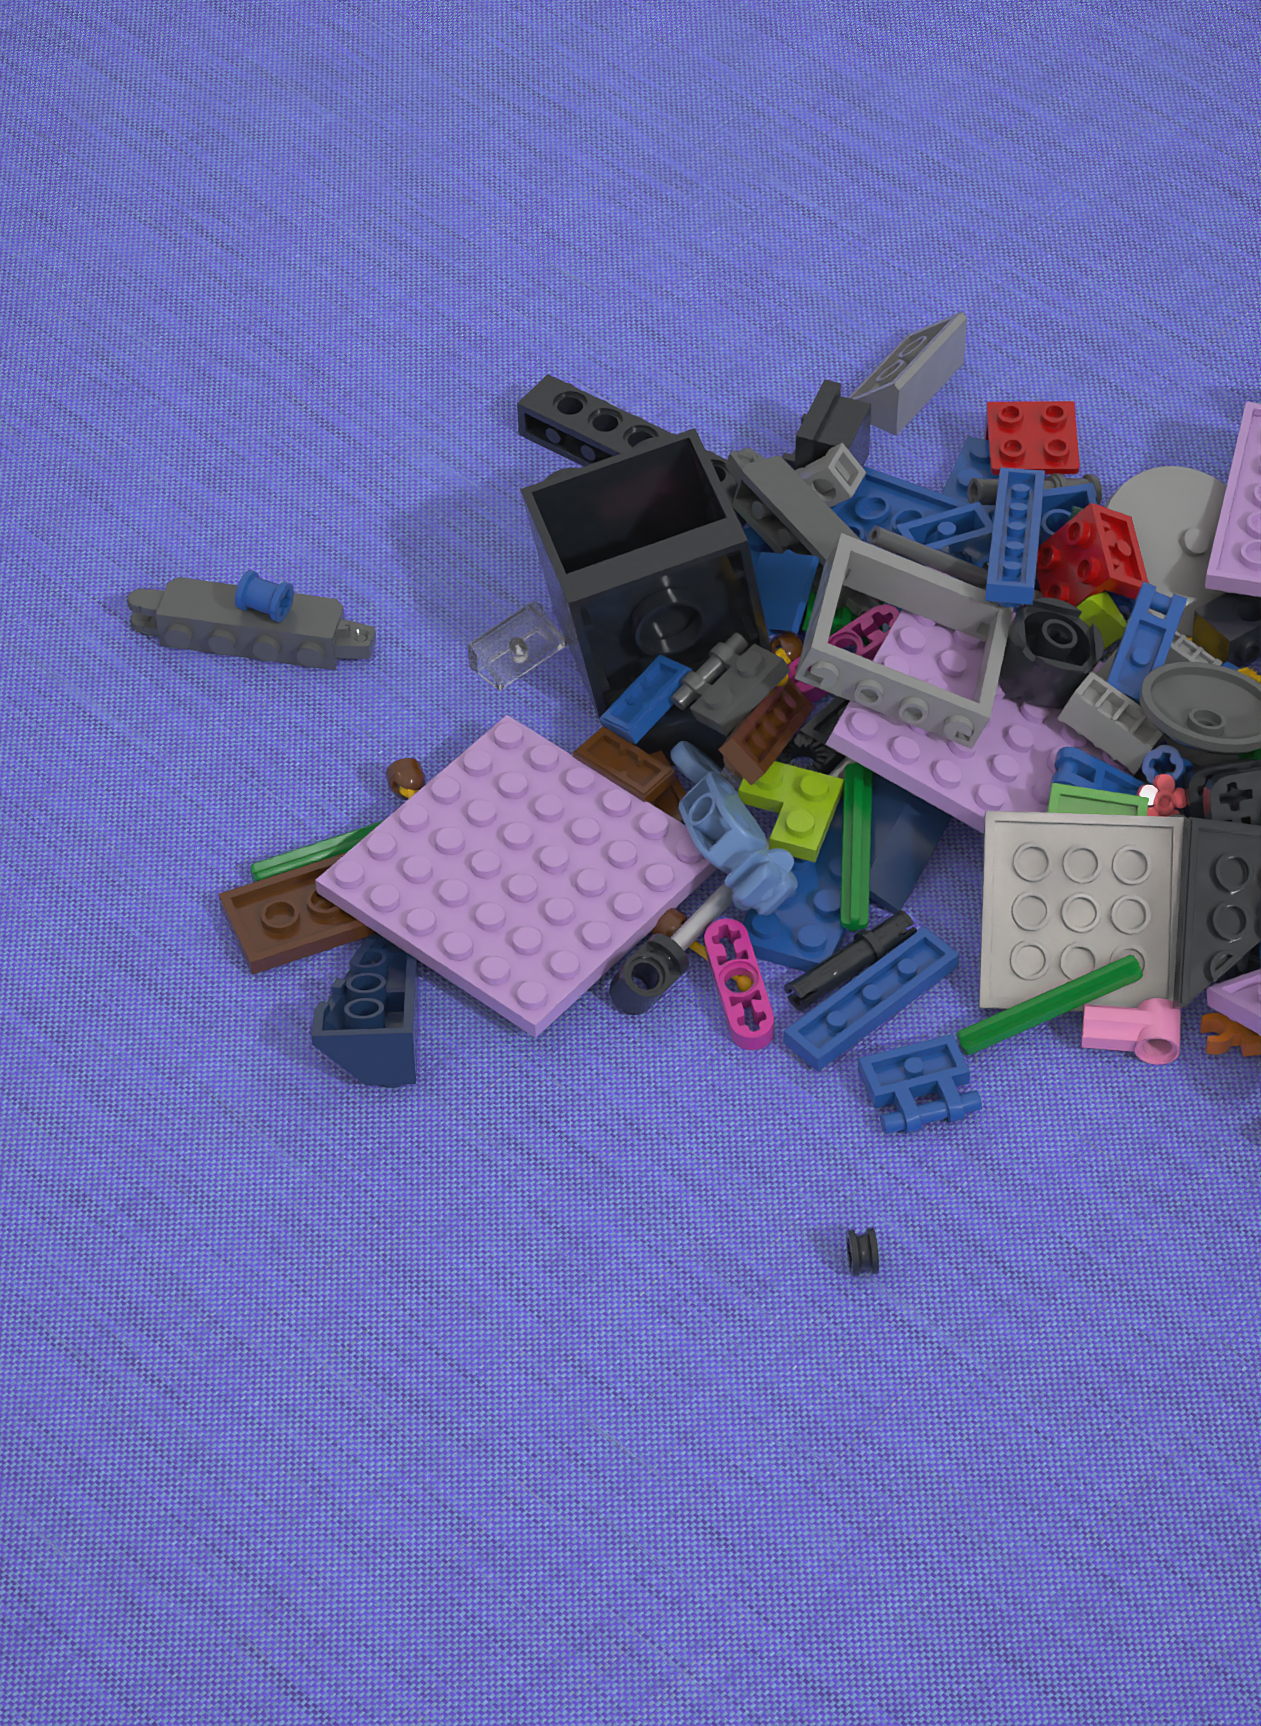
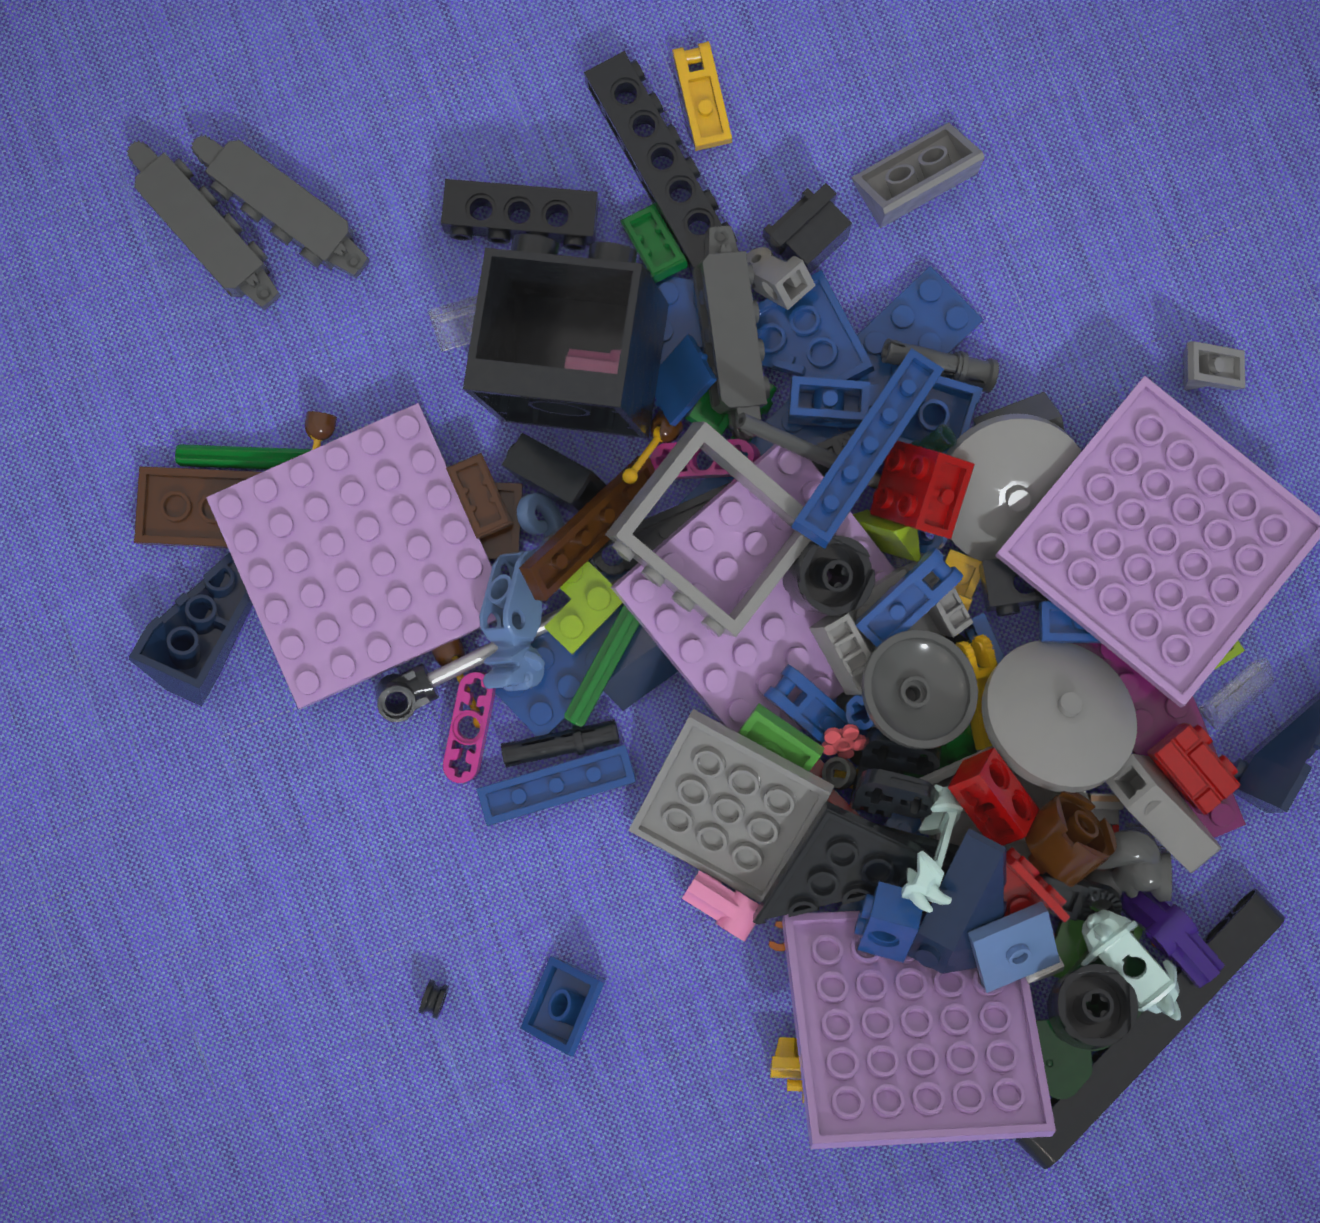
camera: 30 degrees right, 35 degrees up
(173, 672) = (200, 227): none -> dark grey hinge
(264, 596) = (285, 202): blue bush -> none
(481, 550) = (464, 197): none -> black brick
(645, 700) = (521, 450): blue plate -> none
(647, 393) = (702, 97): none -> yellow plate
(737, 691) = (582, 491): dark grey plate -> none
(917, 1071) = (550, 865): blue plate -> none
(1020, 1193) = (562, 1005): none -> blue slope
(1032, 436) = (969, 307): red bracket -> none
(1049, 1005) = (673, 861): green axle -> none

